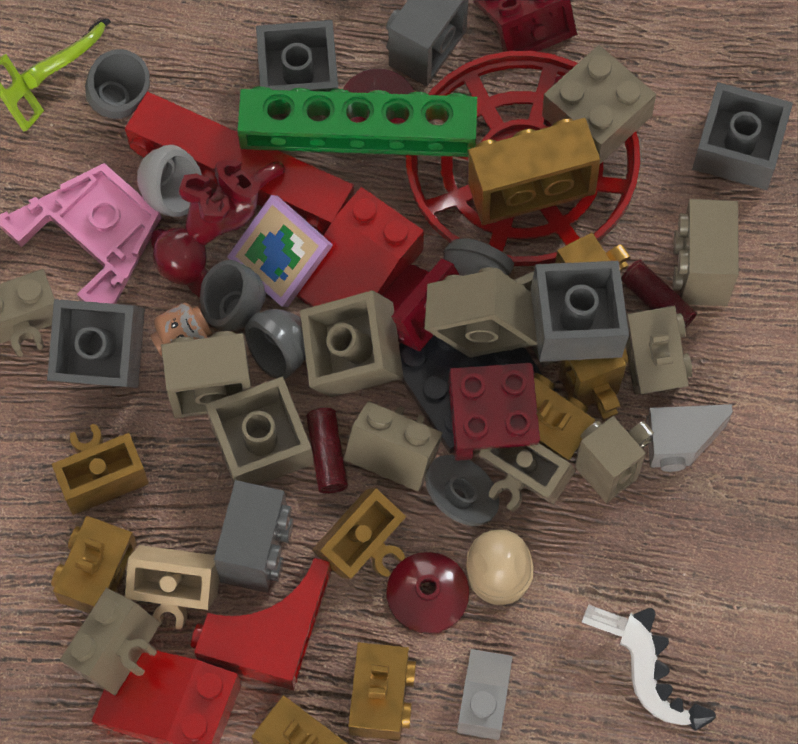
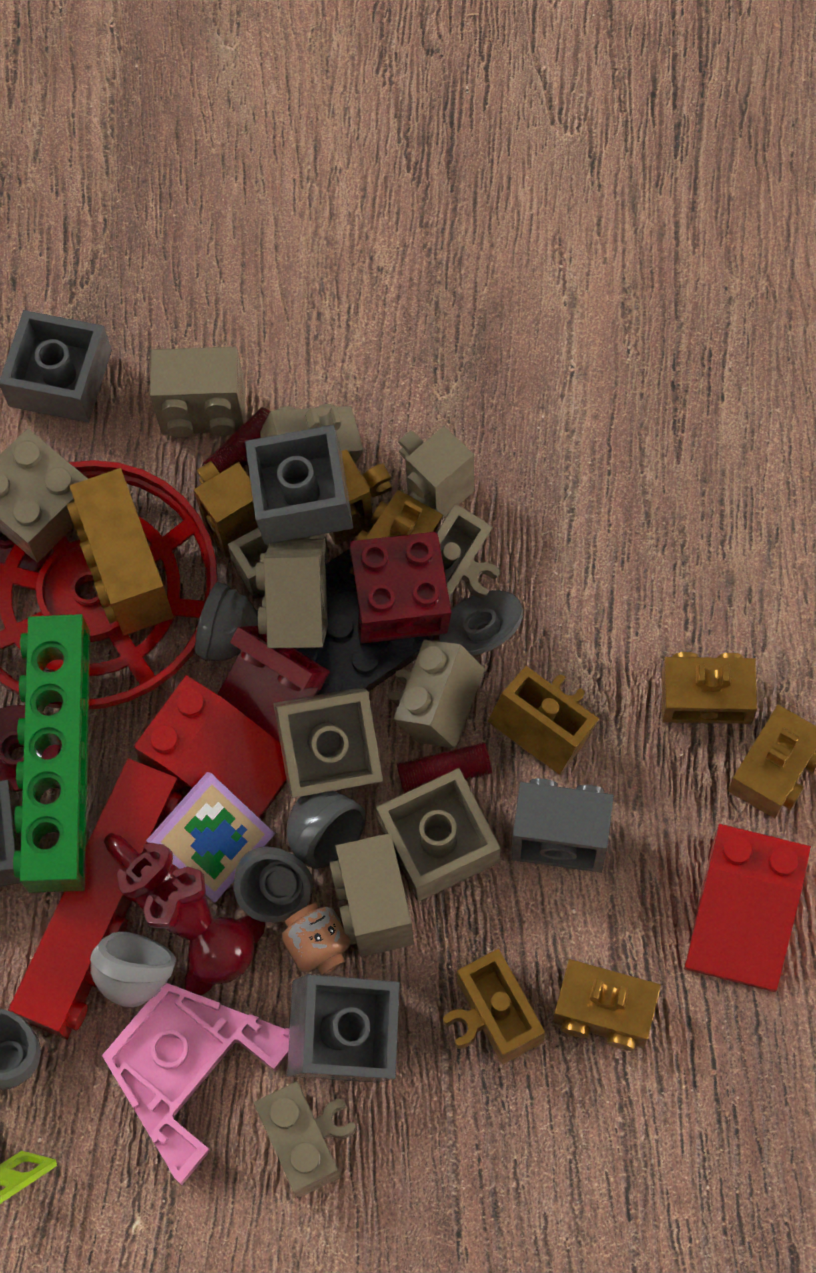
camera: 90 degrees left, 0 degrees up
(111, 642) = (696, 966): dark tan brick -> none
(172, 579) = (615, 911): tan brick -> none
(267, 642) = (668, 801): red arch -> none
(427, 612) = (596, 675): dark red dish -> none
(484, 694) = (697, 587): light grey slope -> none
(499, 567) = (557, 585): tan hat -> none
(646, 667) = (650, 439): white piece -> none
(683, 433) = (398, 411): light grey slope -> none

